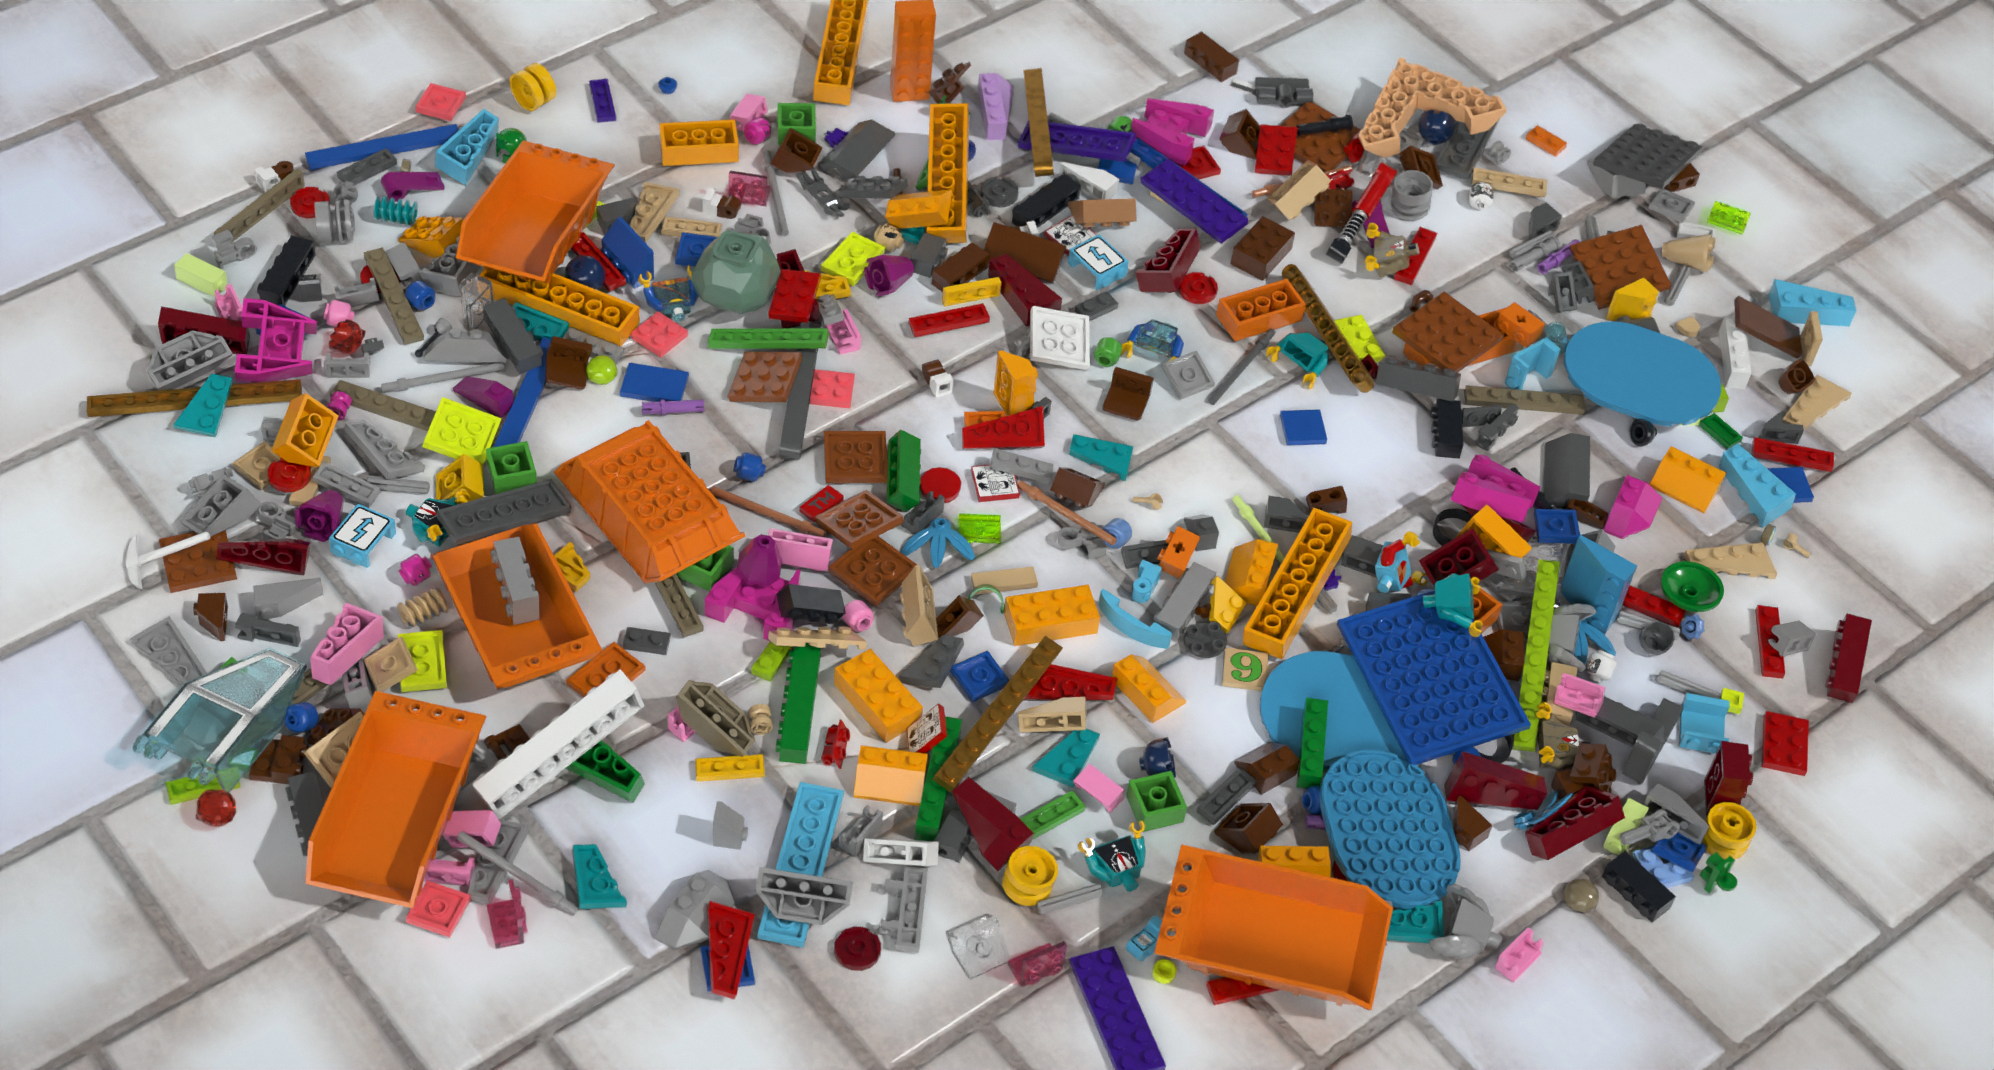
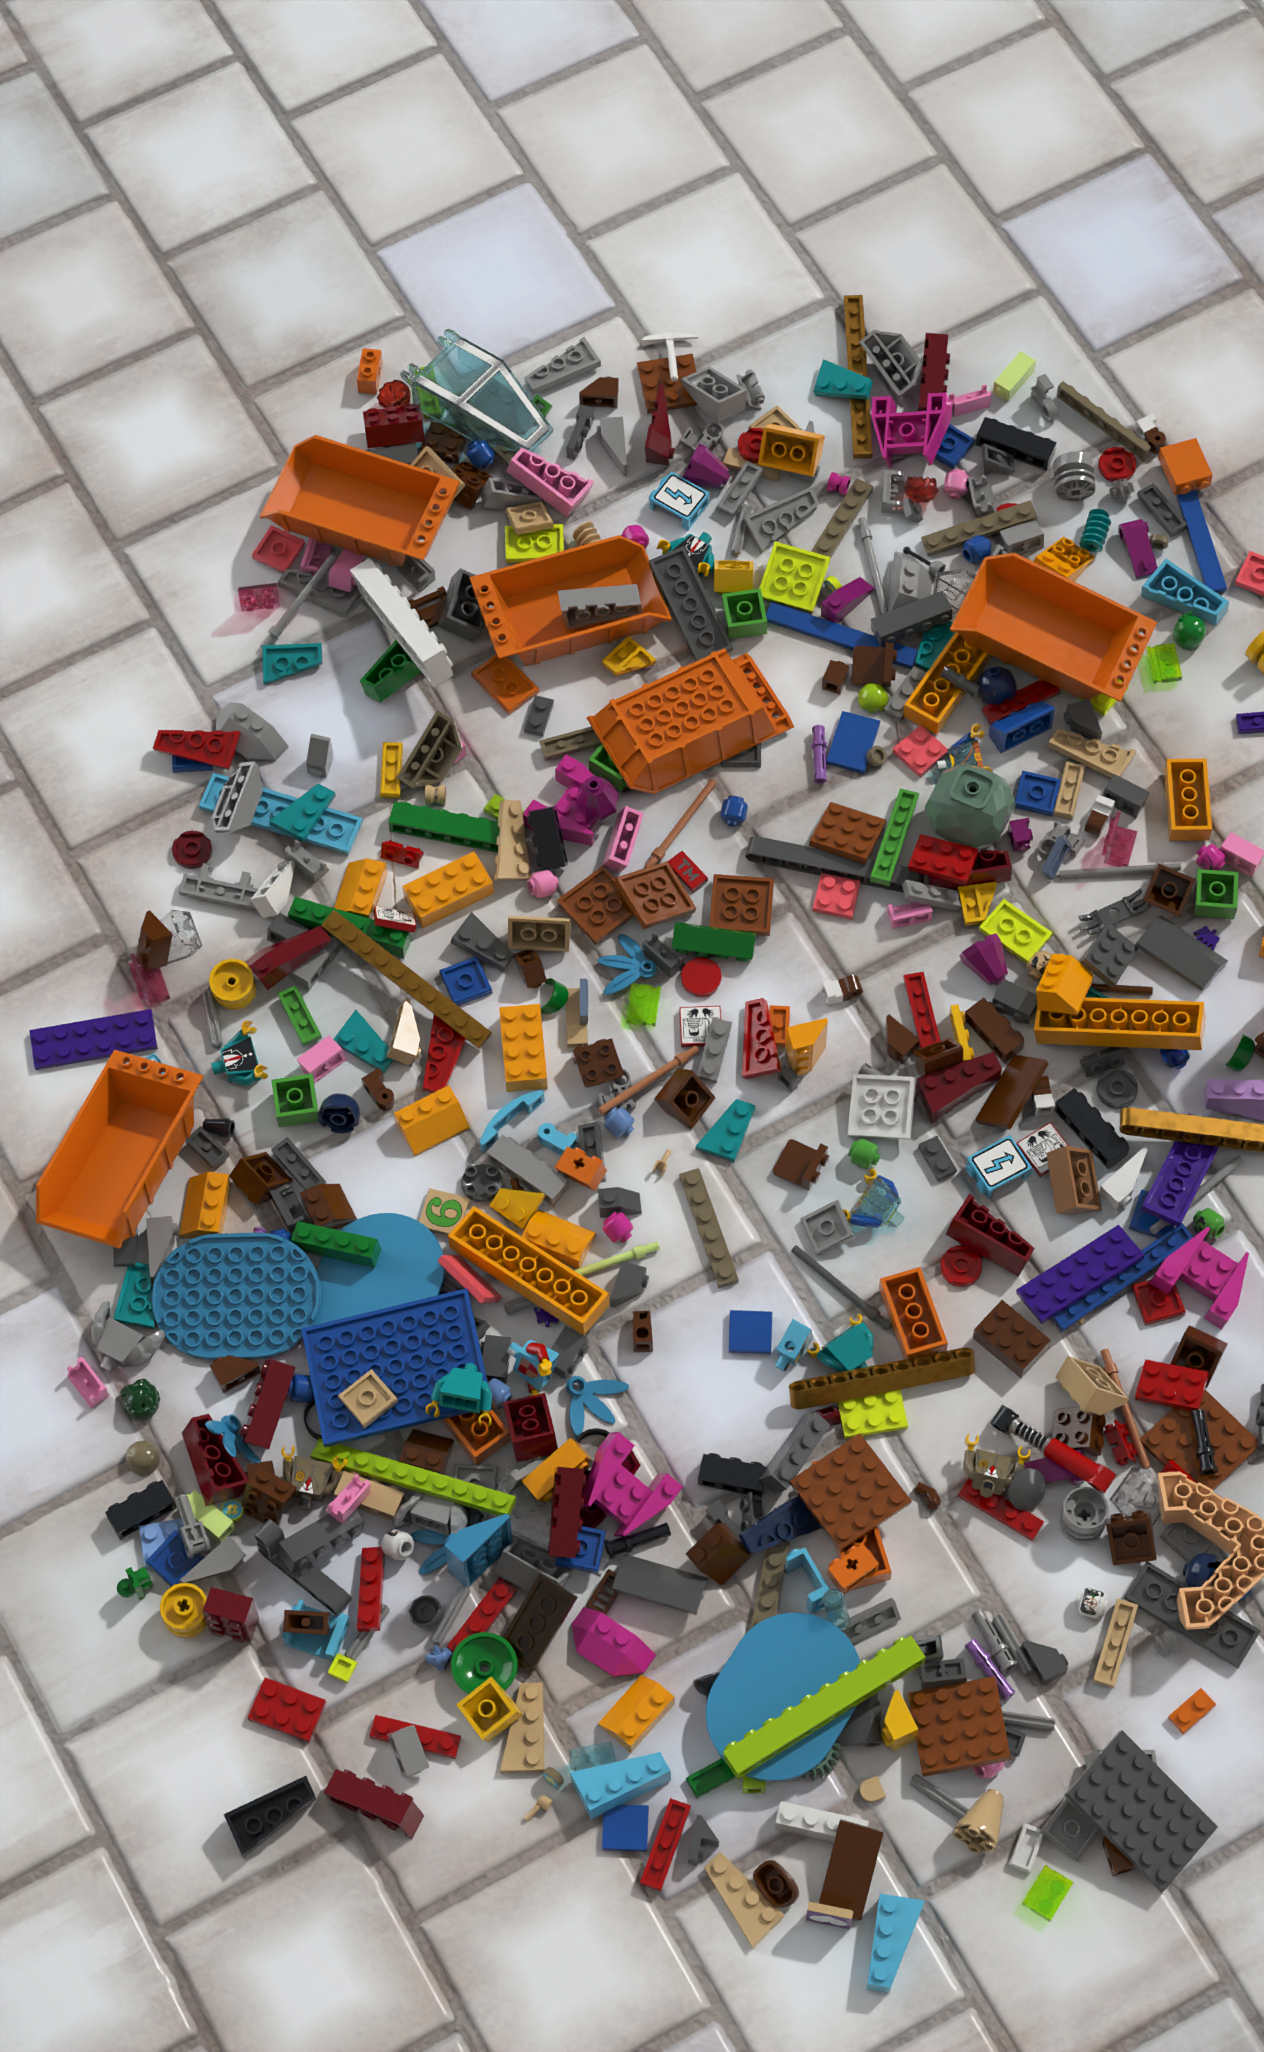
camera: 105 degrees right, 15 degrees up
(175, 841) = (369, 371): none -> orange brick
(264, 801) = (393, 426): none -> dark red brick
(321, 145) = (1185, 466): none -> orange brick
(470, 400) = (832, 584): none -> neon yellow tile
(517, 706) = (460, 609): none -> dark grey brick
(580, 397) = (835, 677): none -> reddish brown brick
(592, 287) = (959, 681): none -> dark grey pin
(671, 363) = (876, 756): none -> dark tan tile
(695, 187) = (1127, 796): none -> dark grey hinge
(775, 229) = (1056, 857): none -> sand blue tile
(804, 833) = (304, 813): none -> teal wing
(984, 334) = (899, 1040): none -> reddish brown slope
(993, 566) = (583, 1001): none -> sand blue tile
(996, 954) = (153, 943): none -> reddish brown slope
(1002, 297) = (938, 1056): none -> reddish brown slope
(1055, 550) = (597, 1062): none -> reddish brown bracket
(1123, 736) = (376, 1089): none -> reddish brown leg
(1206, 463) = (708, 1228): none -> dark tan plate
(1229, 525) = (617, 1227): none -> dark pink head
(1281, 796) = (288, 1207): none -> dark grey hinge
(1313, 388) = (797, 1337): none -> medium azure torso
(1318, 630) = (469, 1279): none -> coral tile
(1389, 531) = (586, 1396): none -> dark azure plant
(1396, 227) = (1026, 1489): none -> dark grey dish
(1475, 688) = (368, 1398): none -> tan tile
(1491, 385) = (780, 1525): none -> dark blue wing
(1522, 903) = (135, 1395): none -> dark green hair
(1525, 430) = (719, 1554): none -> reddish brown slope
(1541, 515) = (566, 1511): none -> dark red wedge
(1638, 546) = (538, 1621): none -> dark brown plate
(1649, 338) = (823, 1706): none -> lime brick
(1649, 684) = (370, 1589): none -> red plate
(1706, 718) = (307, 1622): none -> reddish brown slope
(1737, 573) = (489, 1709): none -> yellow slope
(1741, 507) = (591, 1756): none -> clear light blue plate
(1892, 737) = (264, 1816): none -> black wedge

